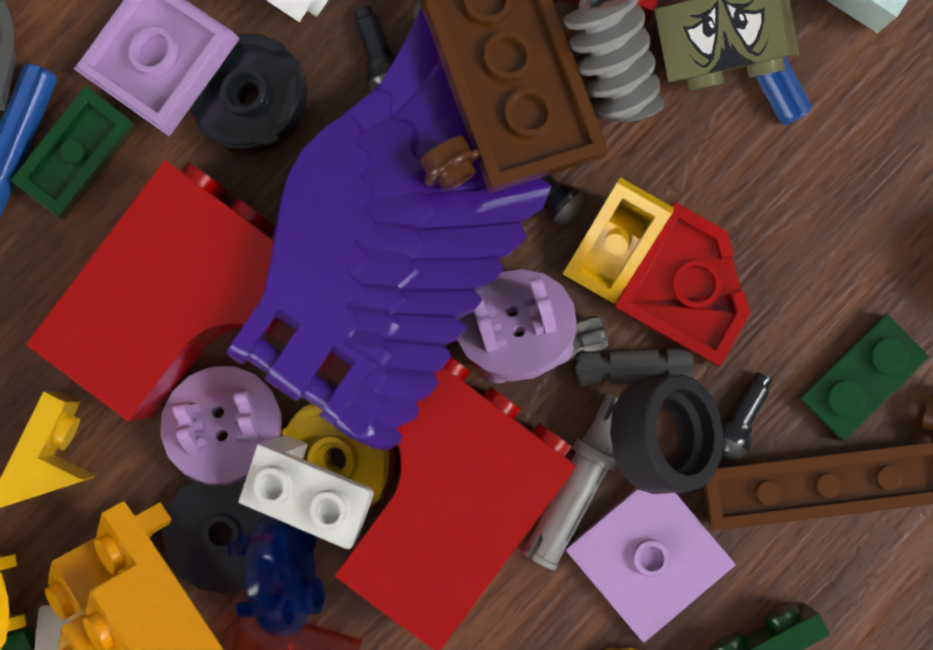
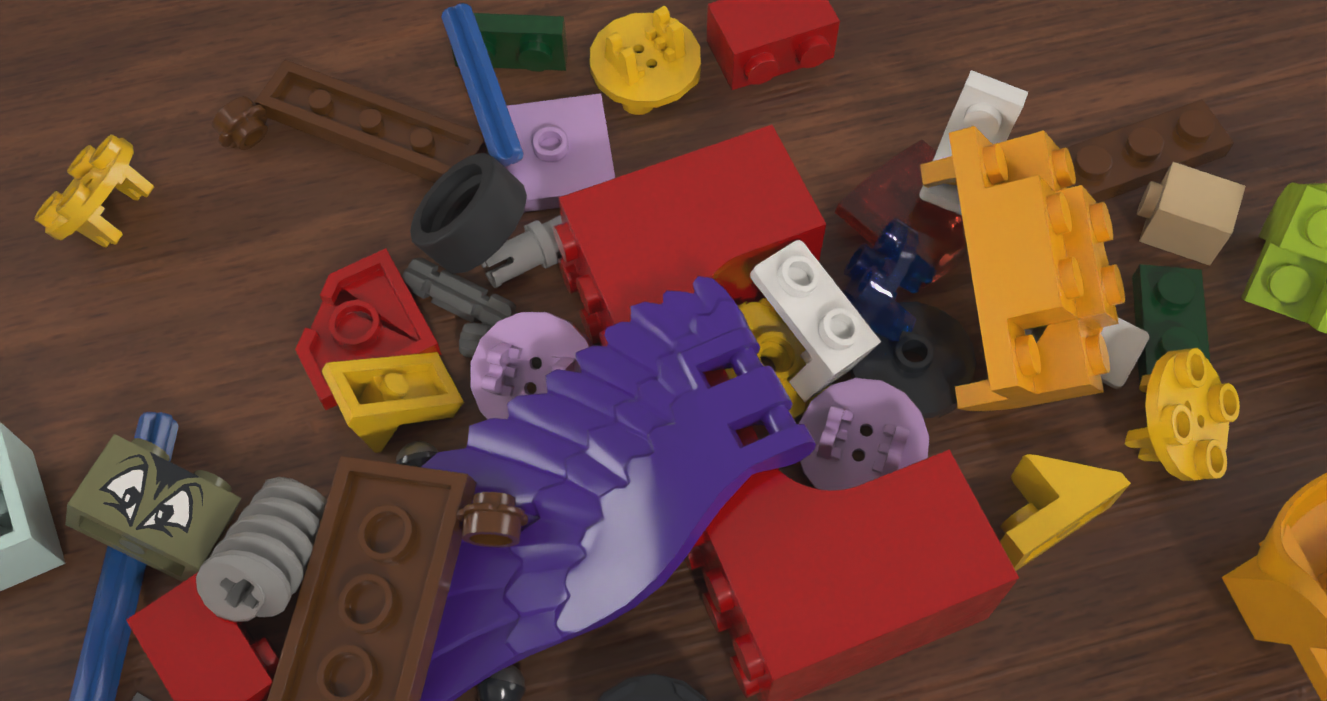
camera: 150 degrees left, 25 degrees down
(738, 425) = (395, 211): black piece -> none
(745, 572) = (482, 84): none -> blue axle
(863, 377) = (280, 189): dark green plate -> none

